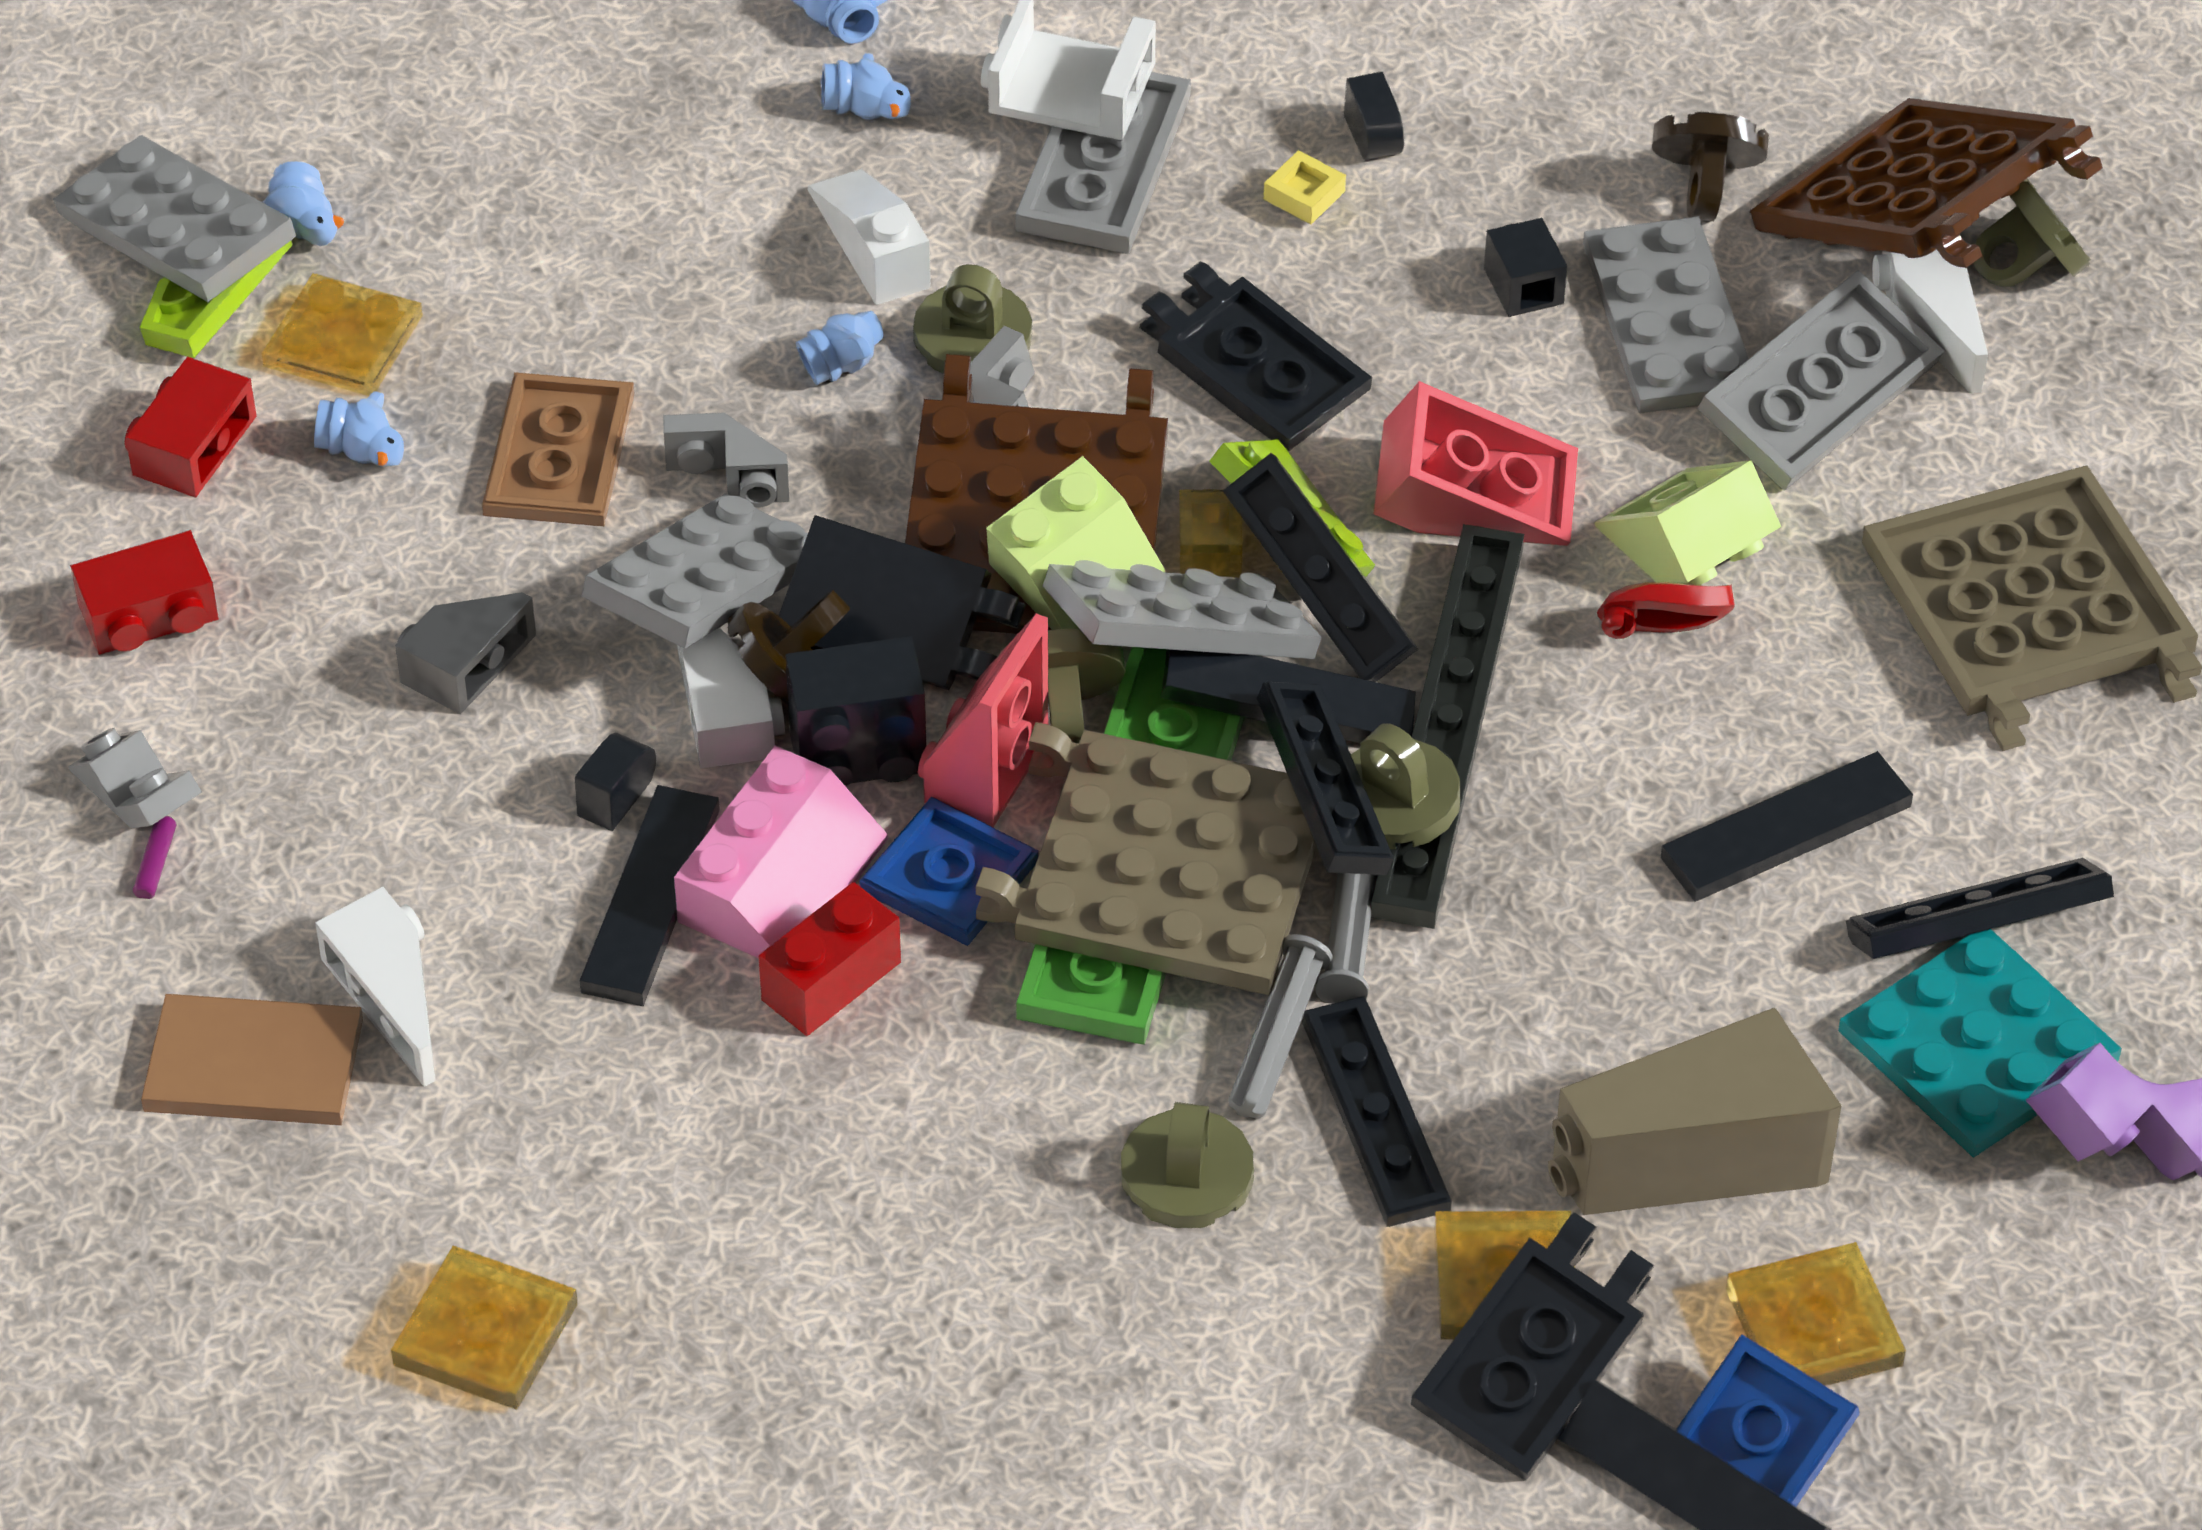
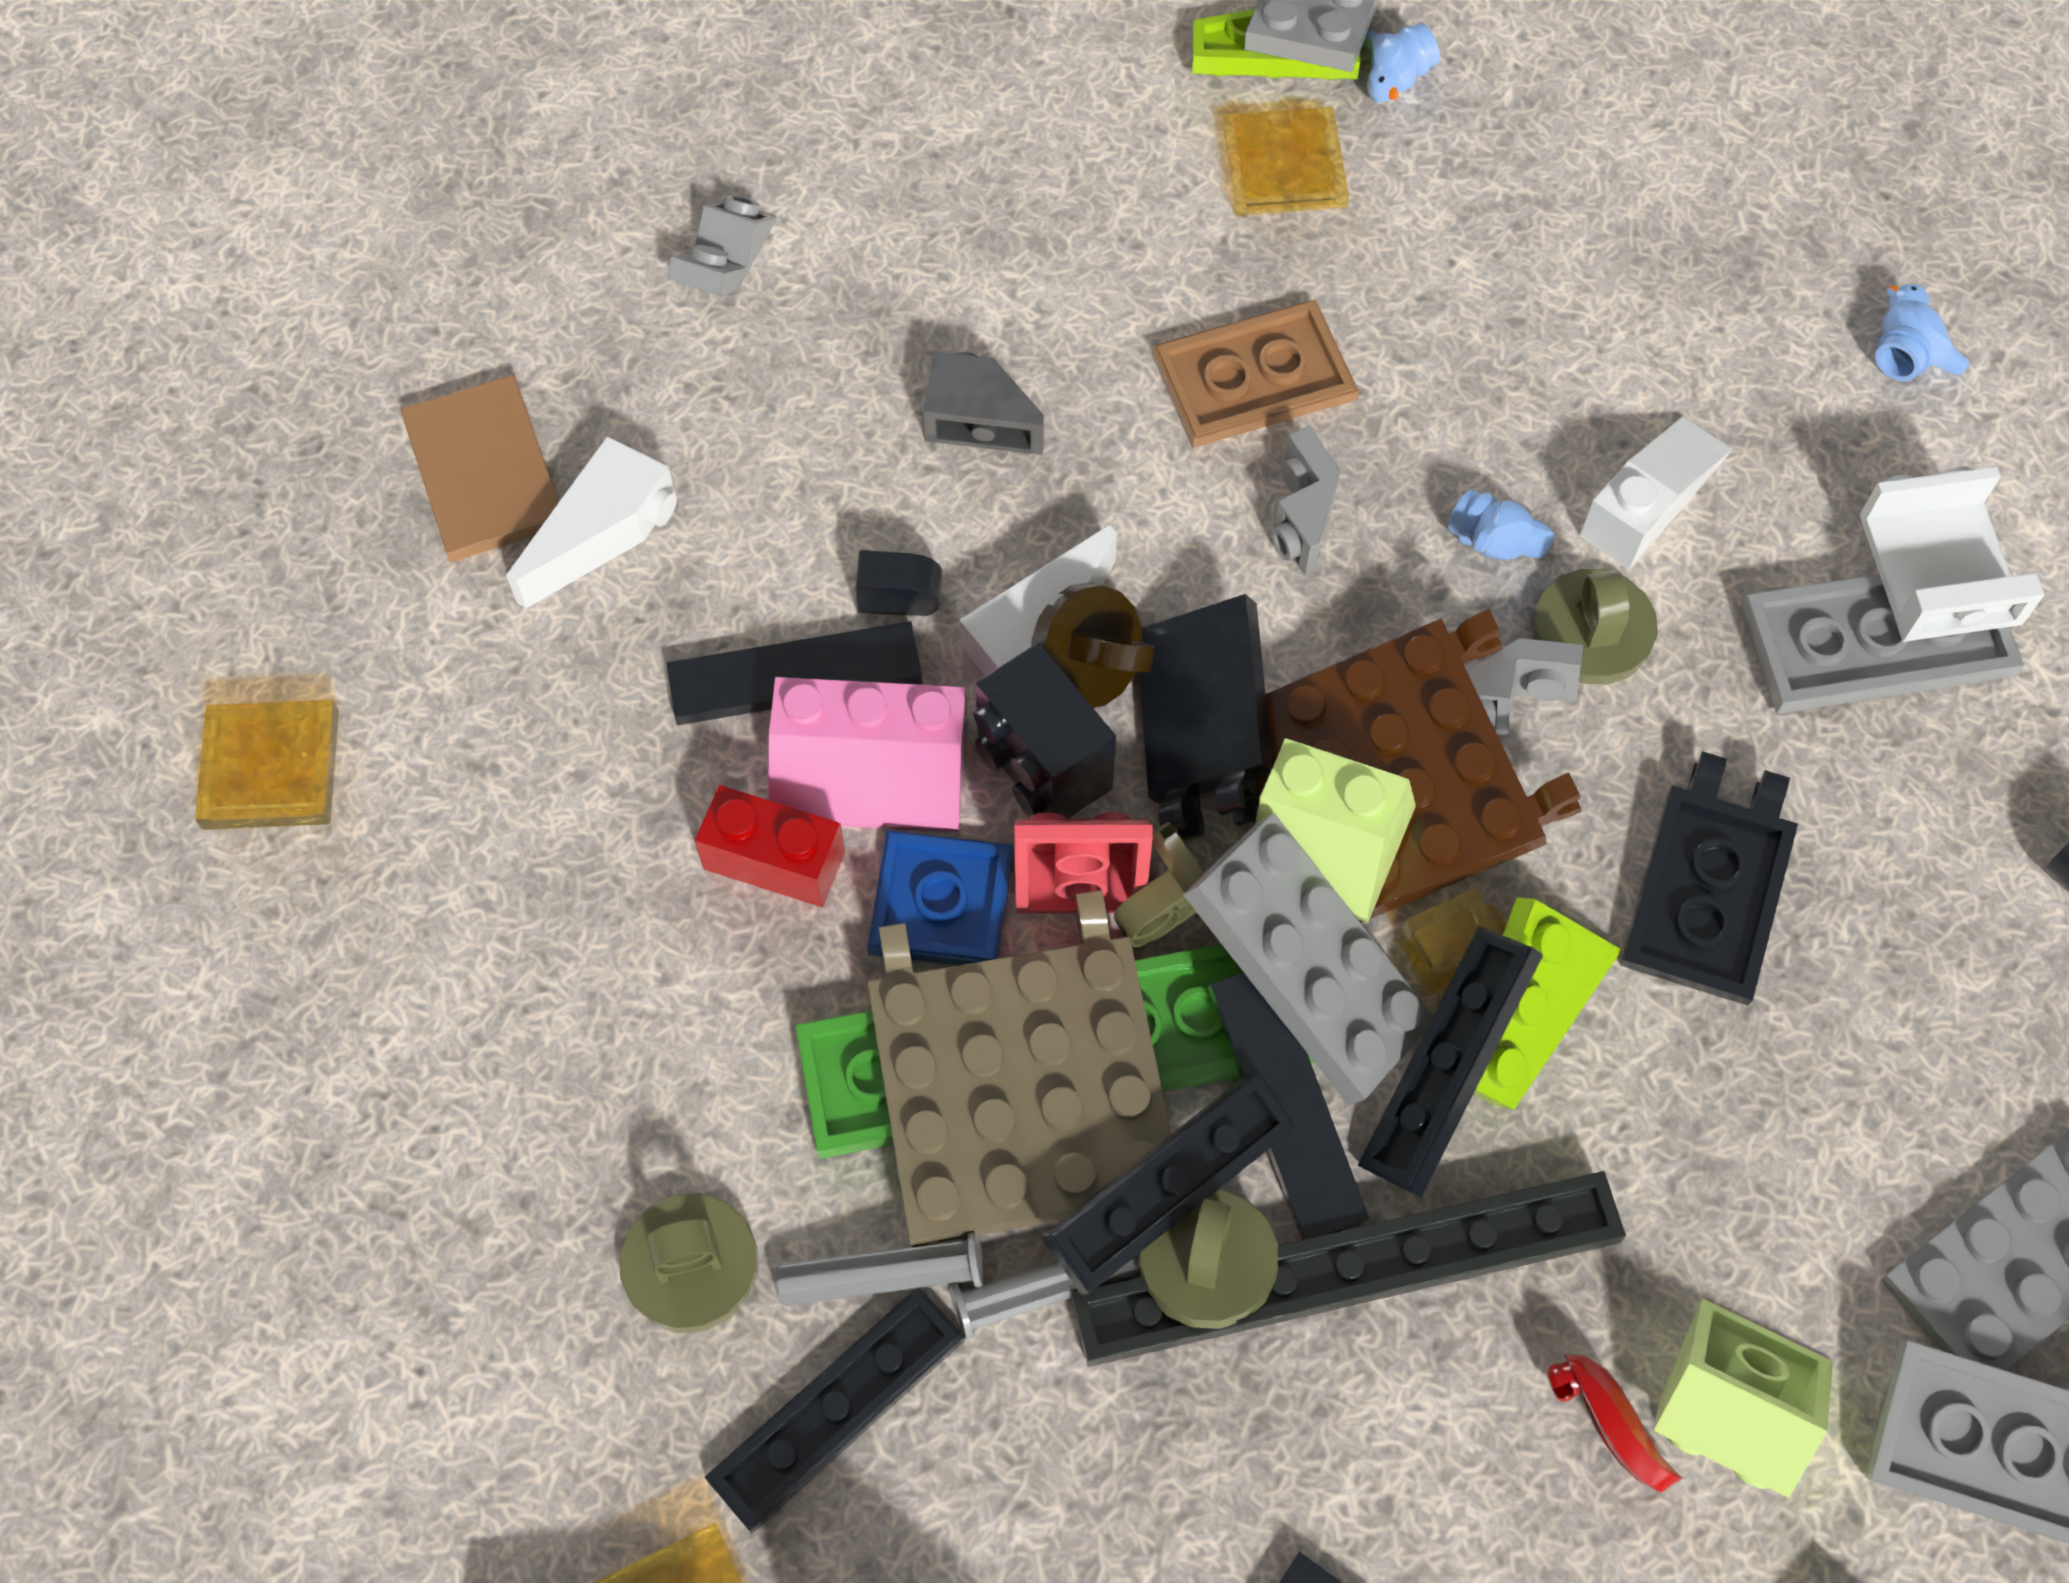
camera: 65 degrees right, 15 degrees up
(145, 593) = (914, 159): red brick -> none
(154, 858) = (659, 302): magenta piece -> none
(190, 426) = (1109, 104): red brick -> none
(358, 431) = (1178, 218): light blue animal -> none
(699, 570) = (1145, 536): light grey plate -> none
(863, 89) = (1821, 401): light blue animal -> none
(1304, 187) = (1961, 828): light yellow plate -> none
(1469, 466) = (1681, 1156): coral slope -> none
(1525, 267) = (1990, 1081): black brick -> none

